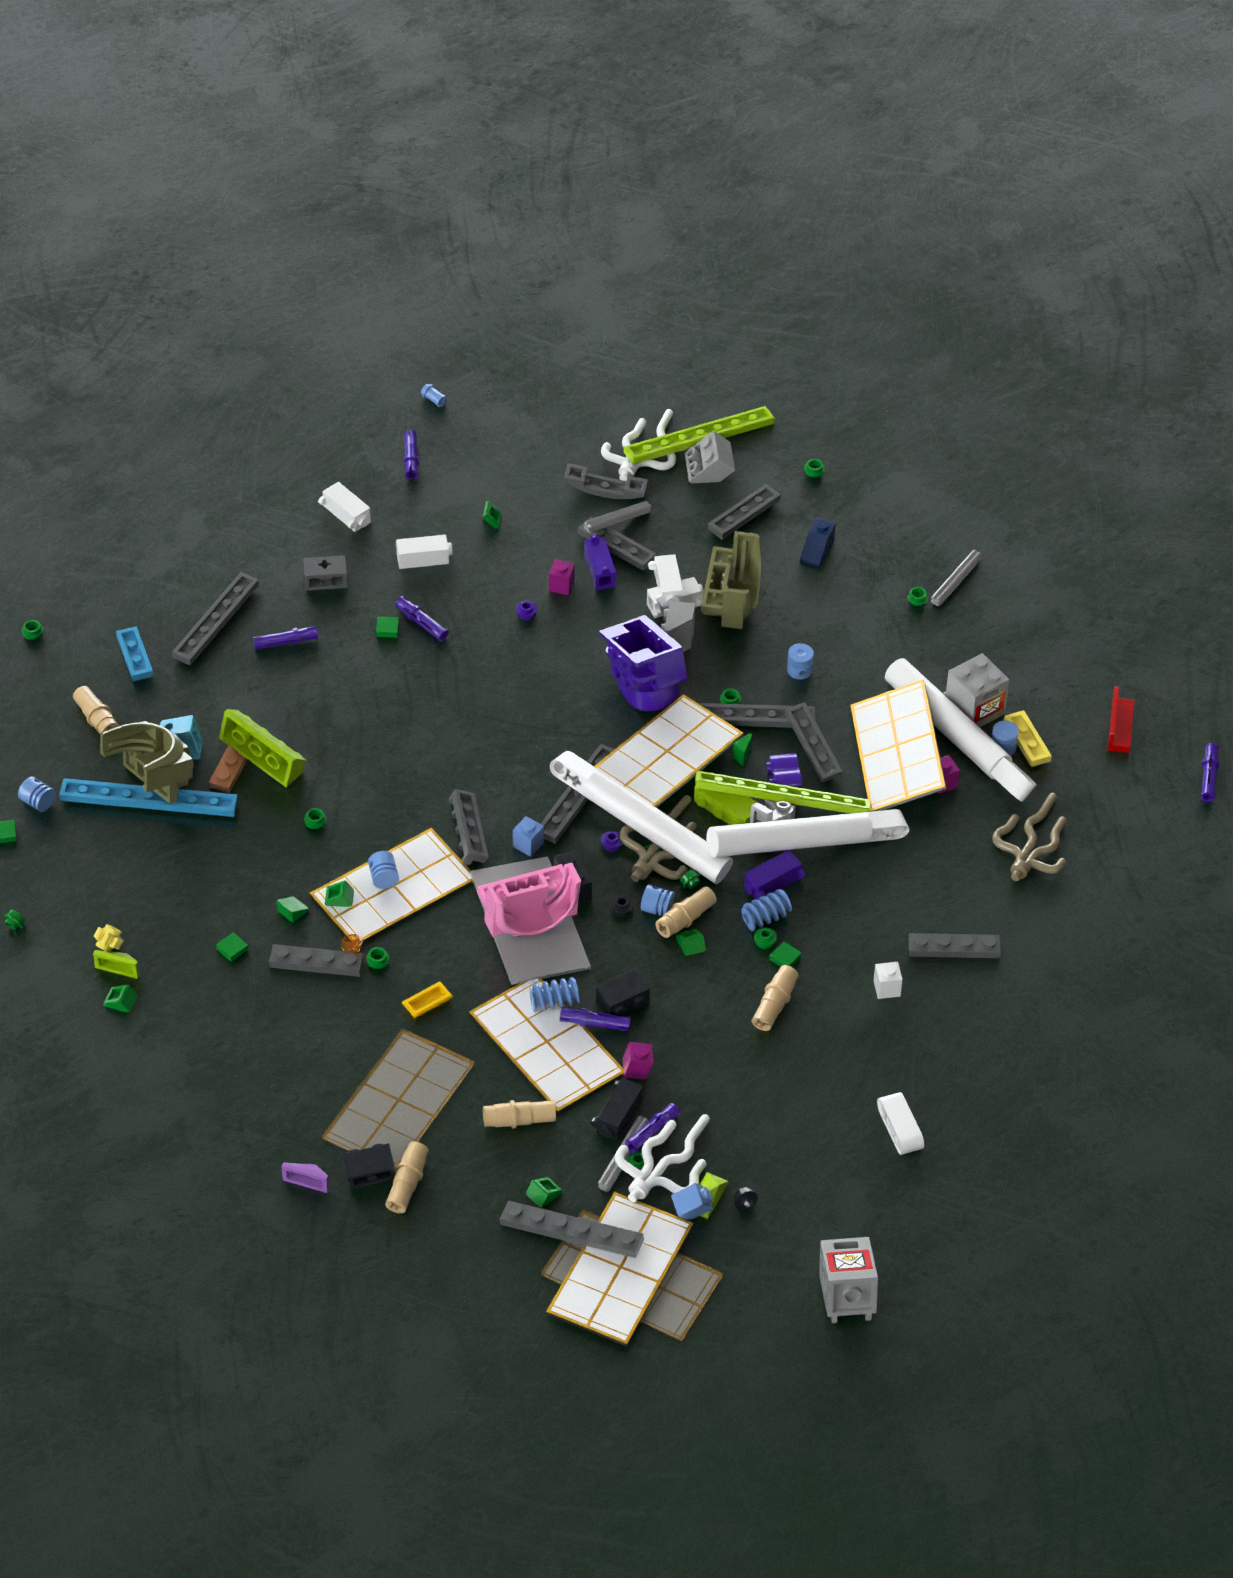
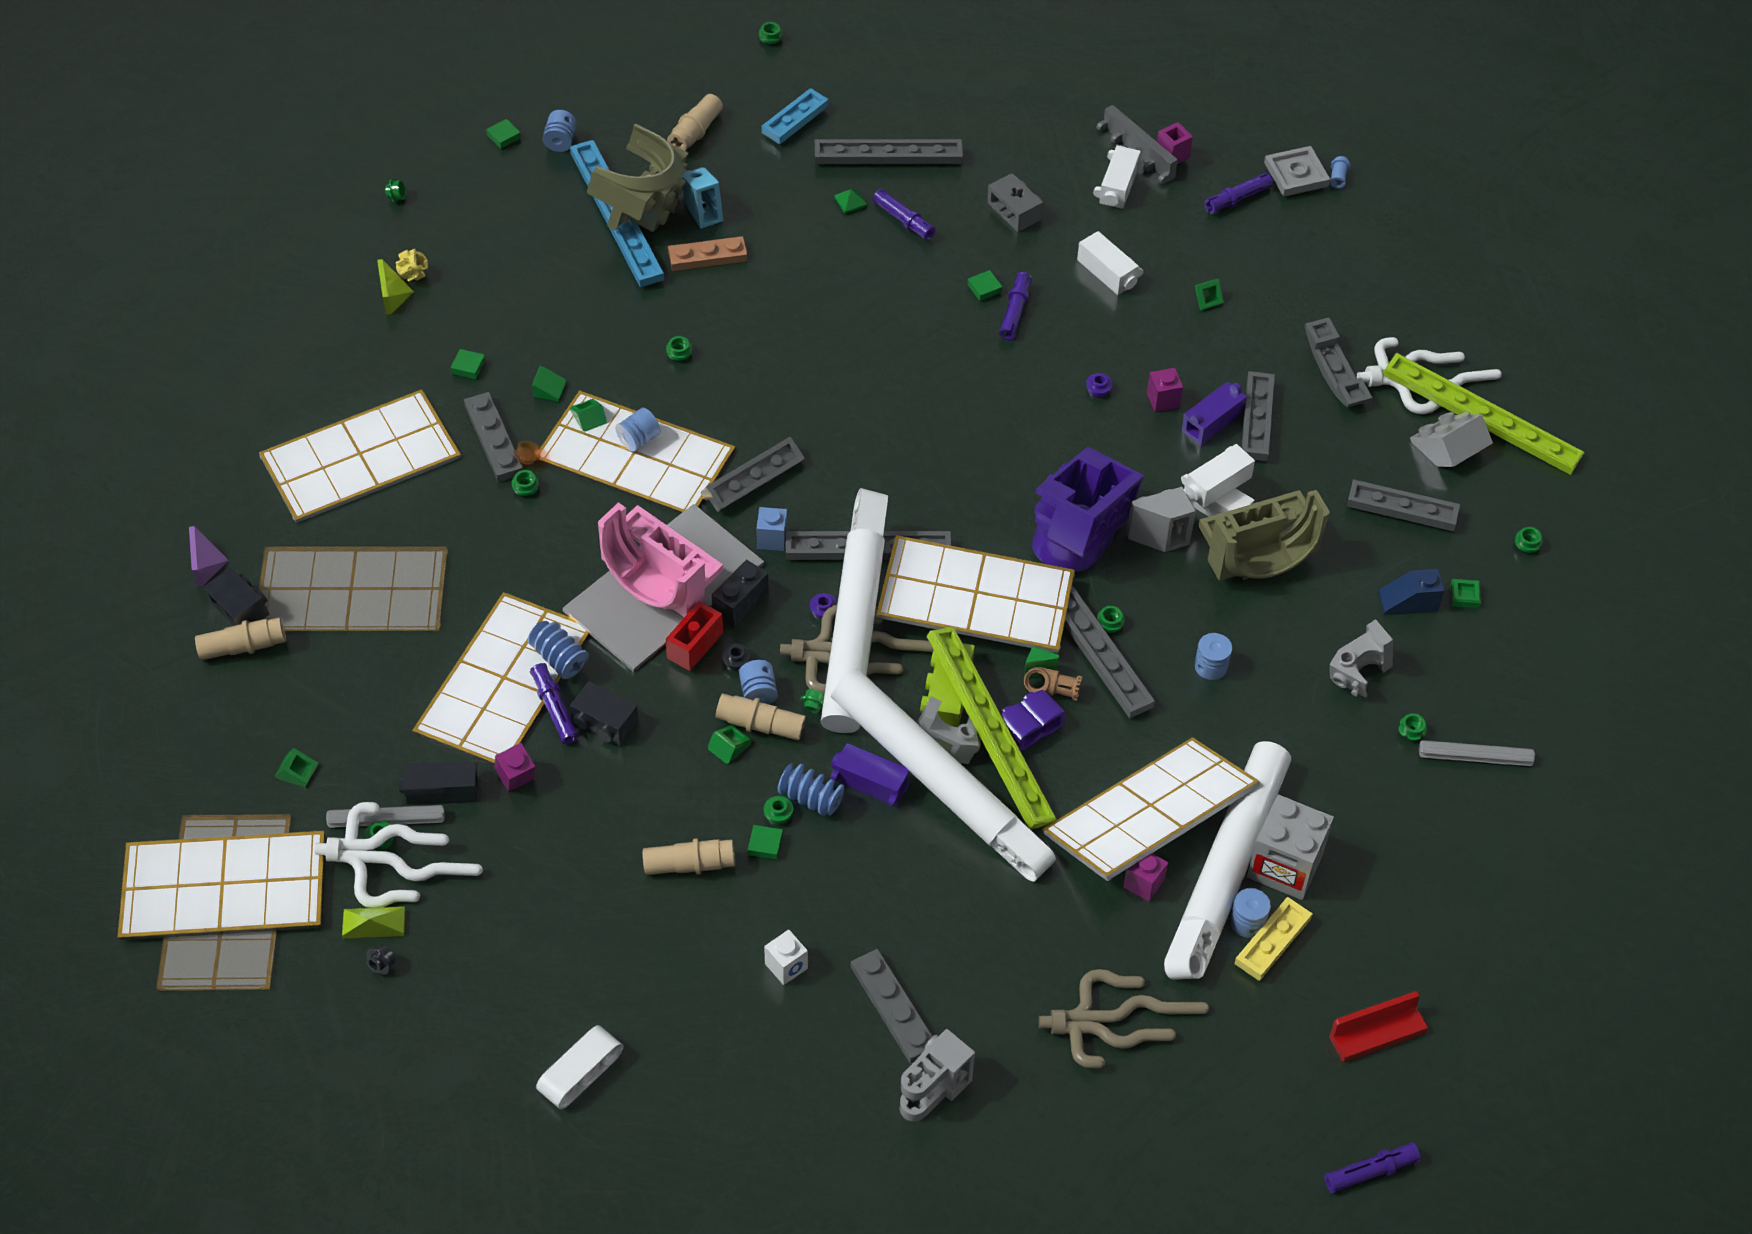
camera: 60 degrees right, 5 degrees up
(121, 998) = (349, 313): green slope -> none
(243, 662) = (850, 200): none -> green slope
(261, 747) = (731, 257): lime slope -> none
(271, 1047) = (359, 455): none -> white piece
(321, 480) = (1135, 138): none -> dark grey hinge
(344, 462) = (1176, 141): none -> magenta brick
(415, 415) = (1297, 171): none -> light grey plate
(427, 1000) = (495, 549): yellow tile -> none
(518, 1113) = (381, 695): tan piece -> none
(572, 1229) = (248, 816): dark grey plate -> none
(595, 916) = (694, 635): none -> red brick
(617, 516) = (1292, 396): light grey axle -> none
(656, 1124) = (430, 824): dark purple pin -> none
(692, 1201) = (338, 906): medium blue brick -> none
(764, 749) = (1053, 681): none -> medium nougat connector
(813, 742) = (1096, 723): dark grey plate -> none
(835, 517) = (1465, 593): none -> green tile
(848, 1277) = (301, 1107): light grey container -> none
(853, 585) = (1369, 648): none -> light grey tile
(1027, 940) = (946, 1072): none -> light grey brick

